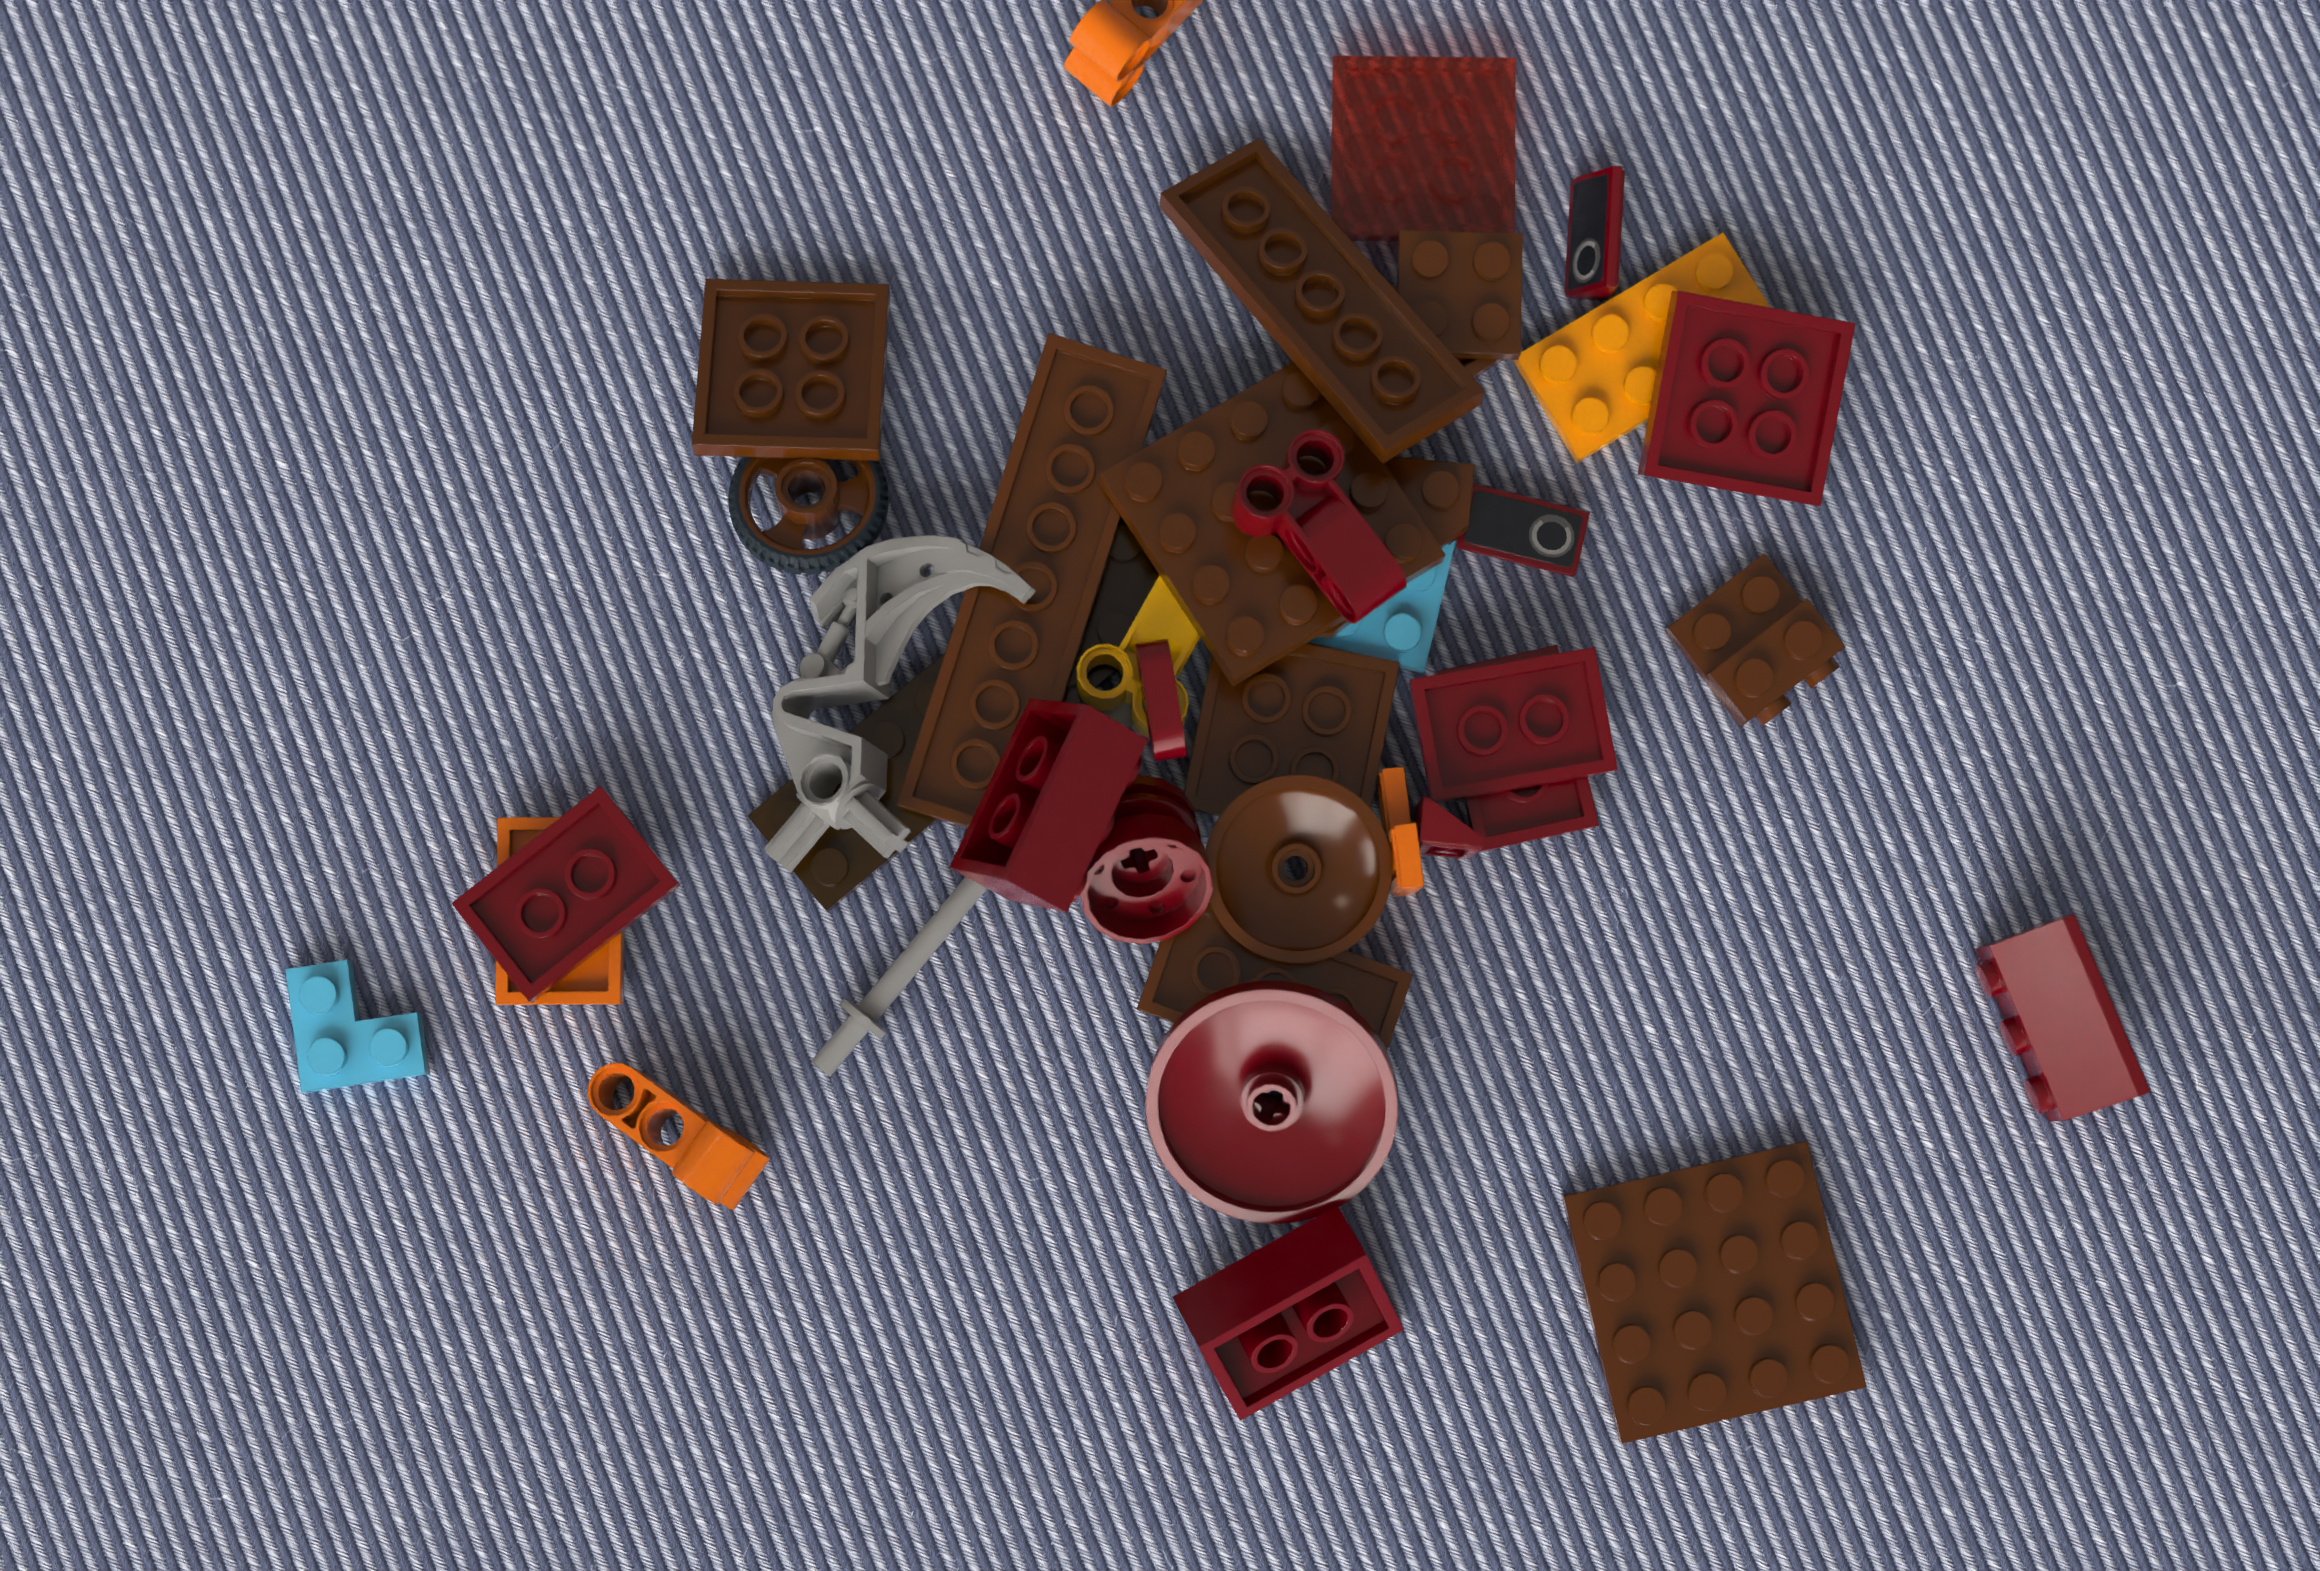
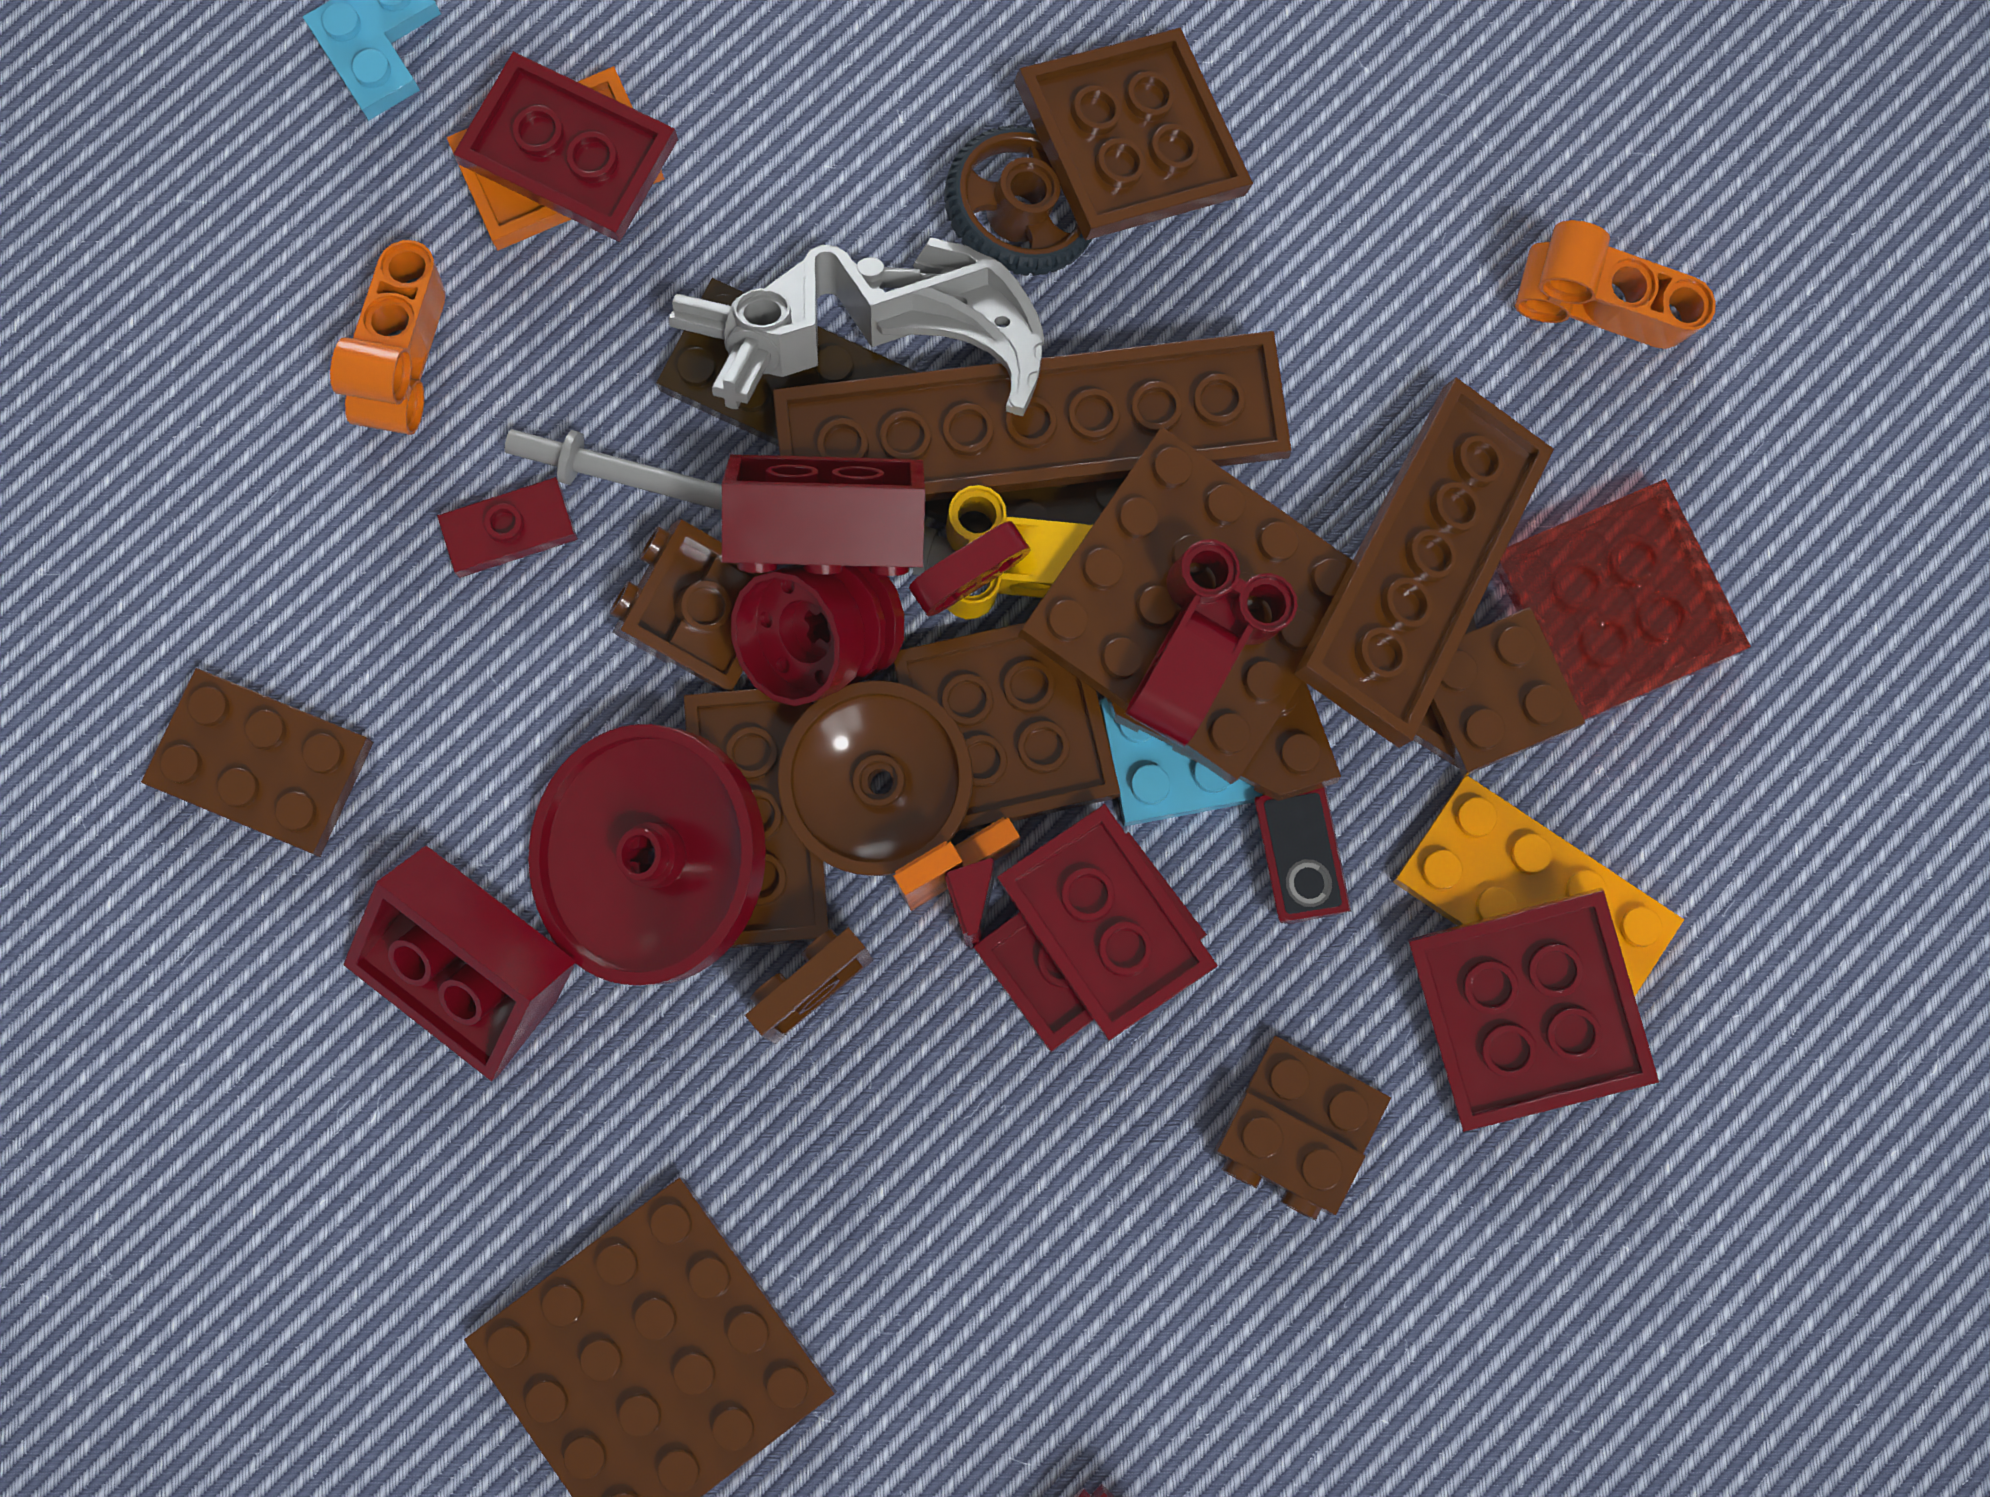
camera: 70 degrees right, 5 degrees down
(899, 1105) = (507, 527): none -> dark red plate
(1017, 1424) = (257, 762): none -> reddish brown plate
(1053, 969) = (684, 604): none -> reddish brown plate
(1444, 981) = (787, 1002): none -> reddish brown plate
(1594, 234) = (1619, 799): slope -> none

